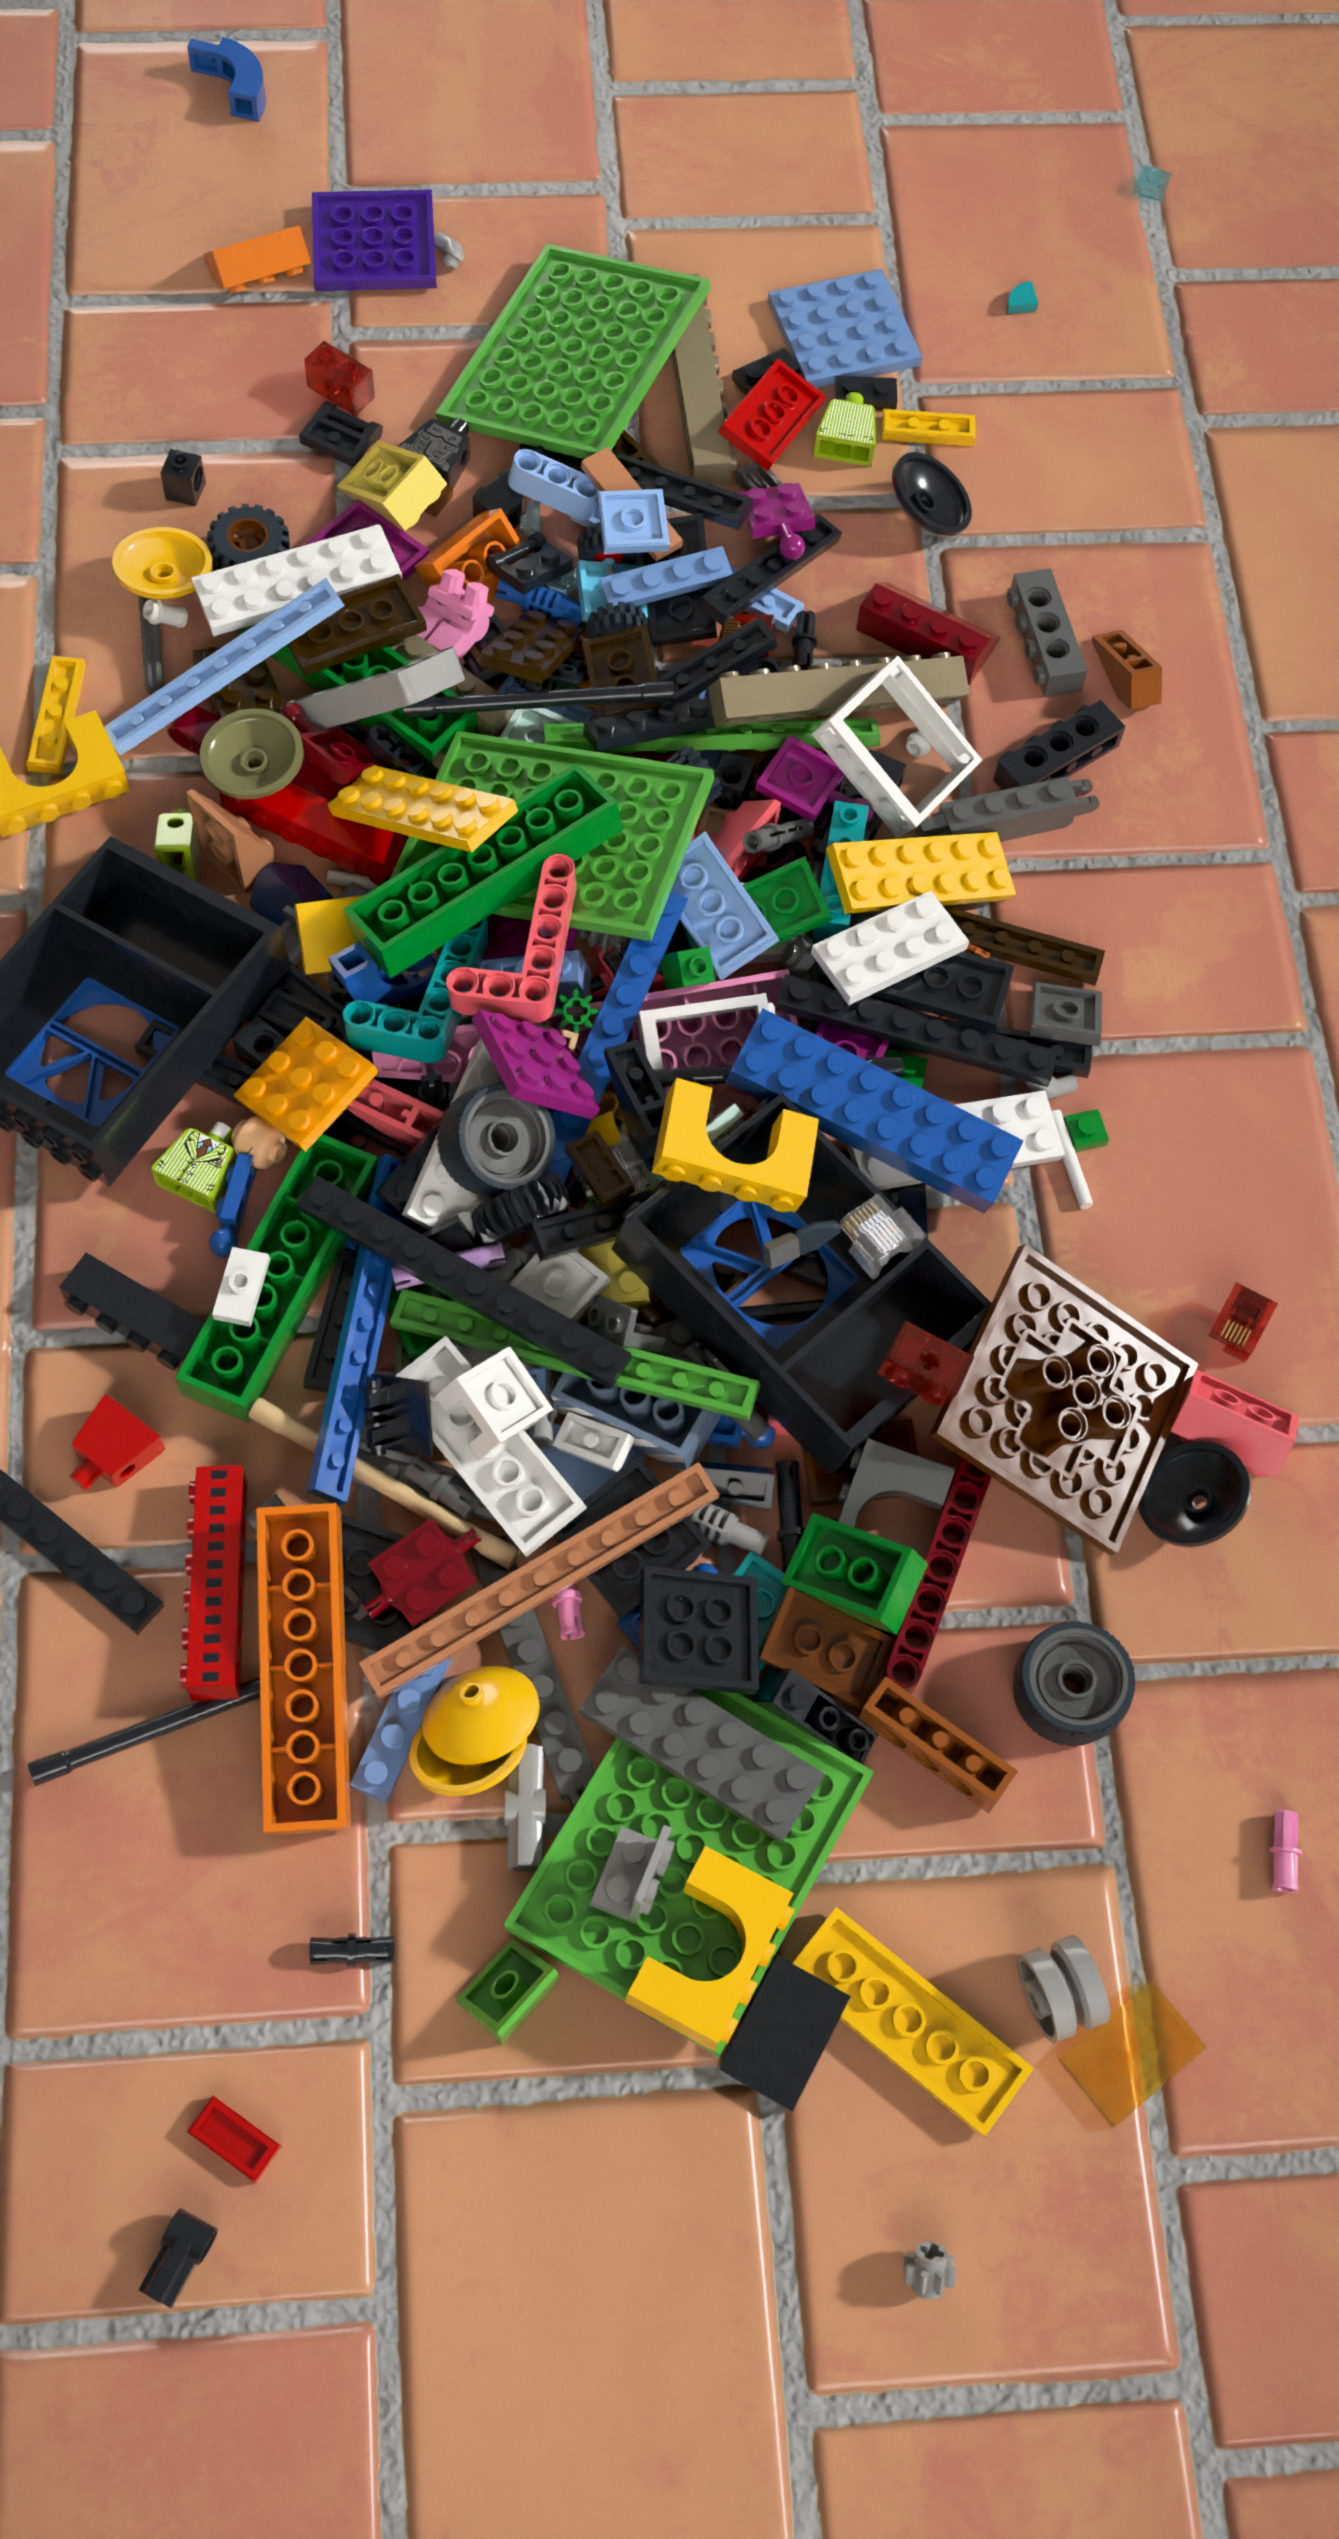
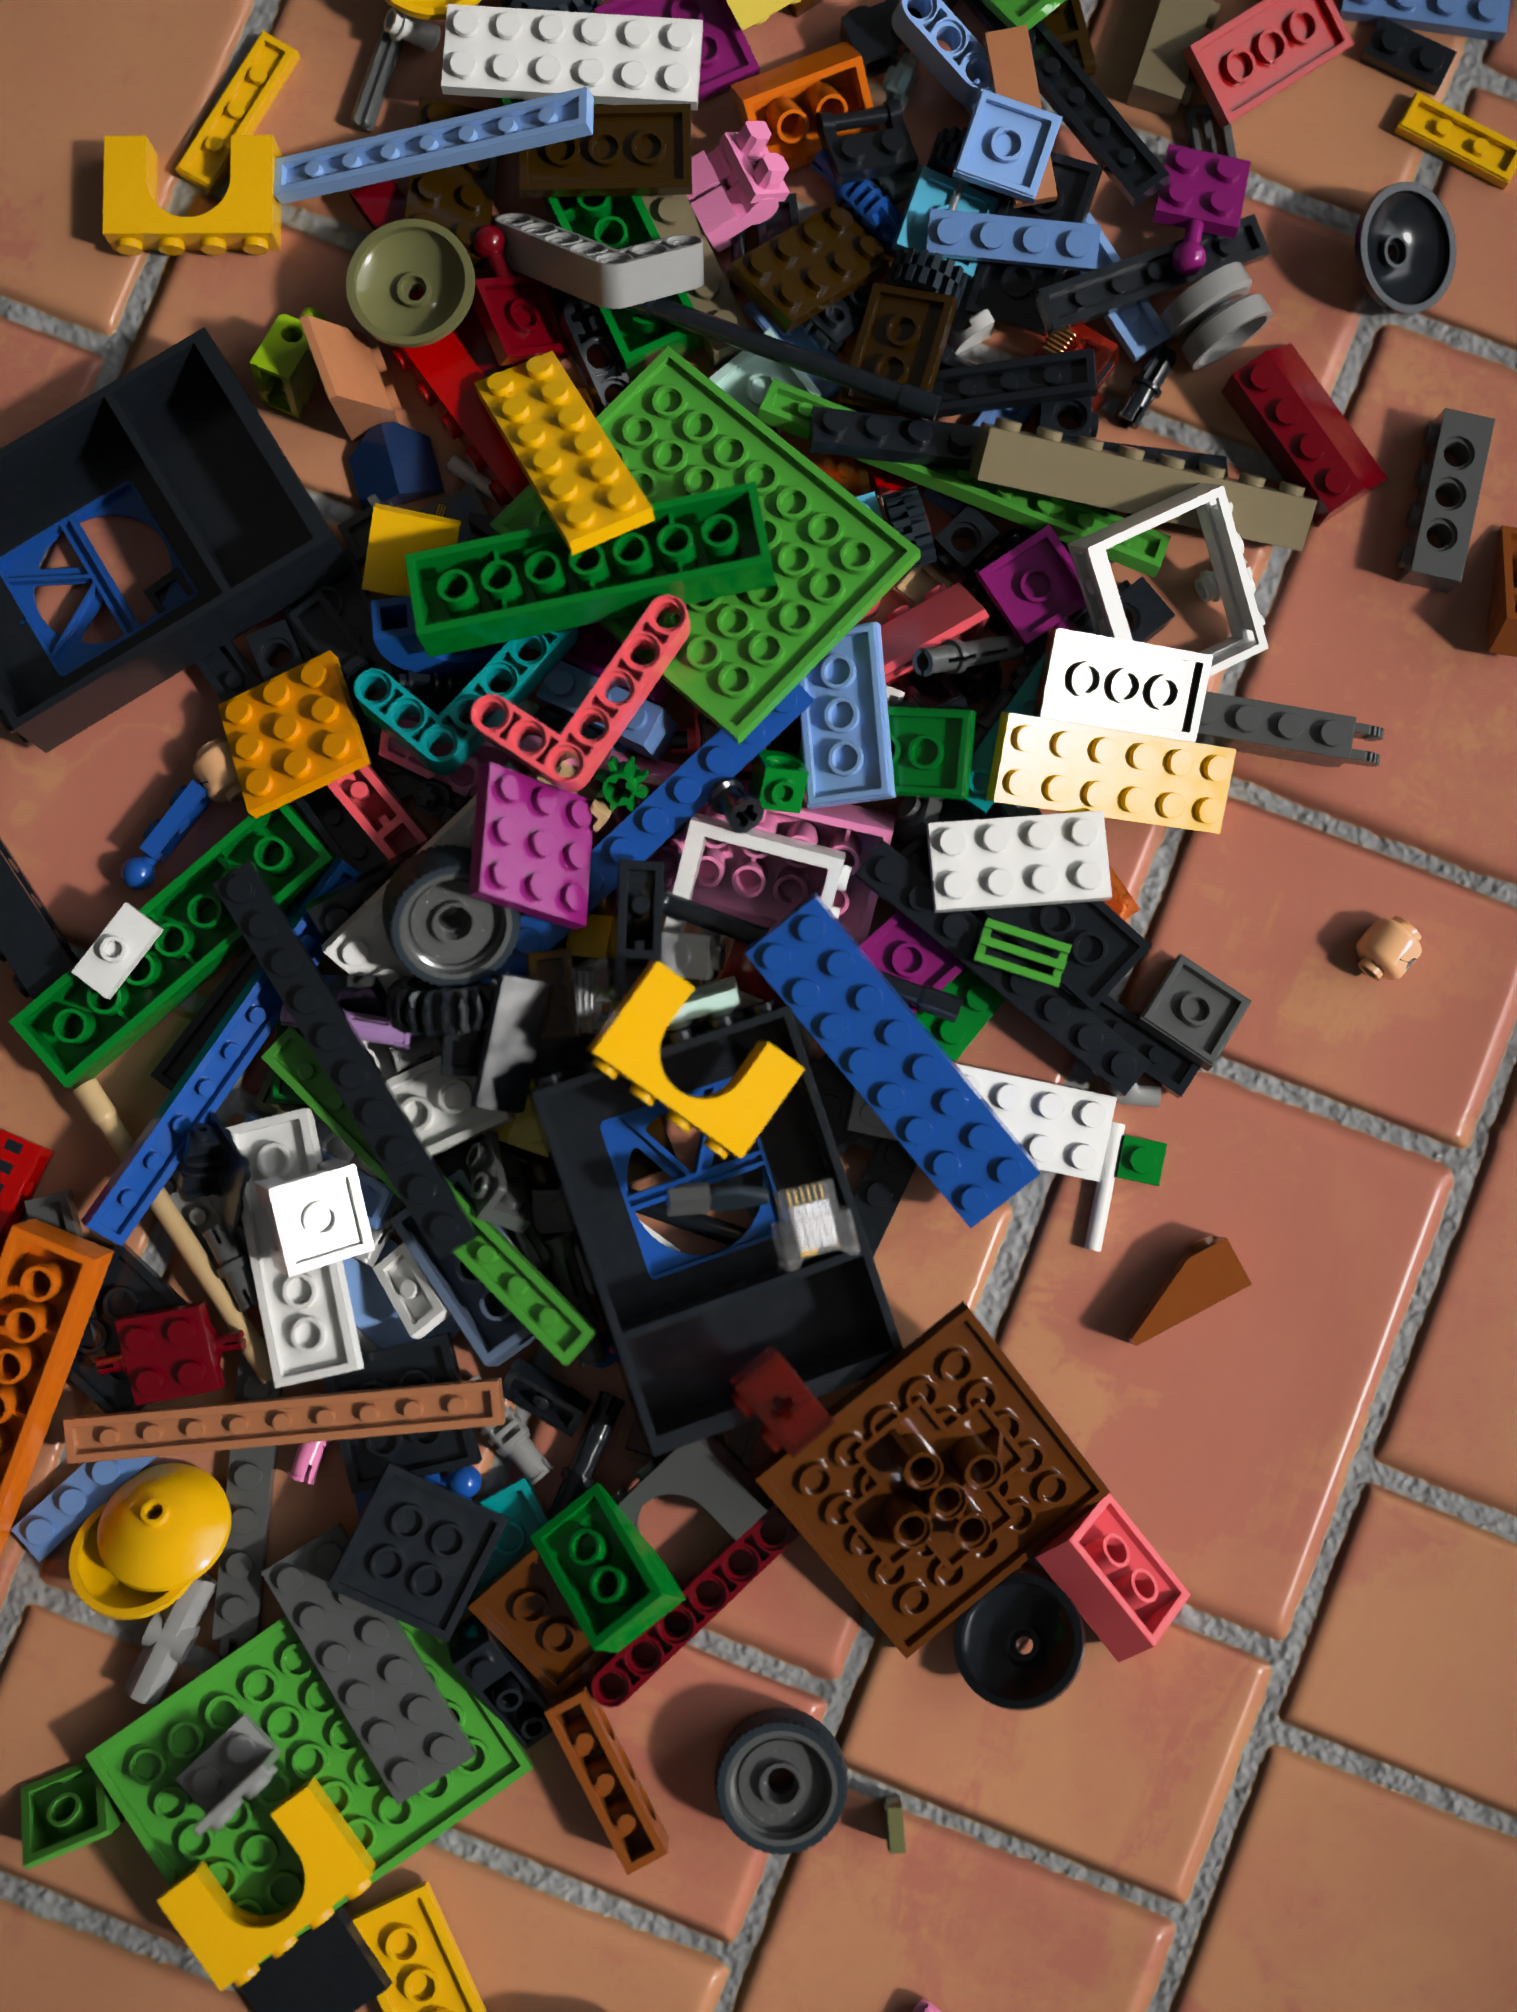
camera: 30 degrees right, 20 degrees up
(197, 1166) = (150, 768): lime torso -> none
(588, 1208) = (510, 1043): none -> black slope
(663, 989) = (729, 799): none -> black bush
(669, 650) = (980, 330): none -> white tile
(829, 576) = (1216, 315): none -> light grey wheel
(847, 431) = (1353, 106): lime torso -> none
(899, 804) = (1122, 685): none -> plate
(925, 999) = (1027, 936): none -> bright green tile
(1030, 947) = (1188, 901): dark brown plate -> none
(1061, 749) = (1438, 669): black brick -> none
(1172, 1193) = (1193, 1284): none -> dark orange slope
(1176, 917) = (1388, 948): none -> light nougat head
(1178, 1681) = (894, 1824): none -> olive tile
(1242, 1321) = (1185, 1469): clear red piece -> none

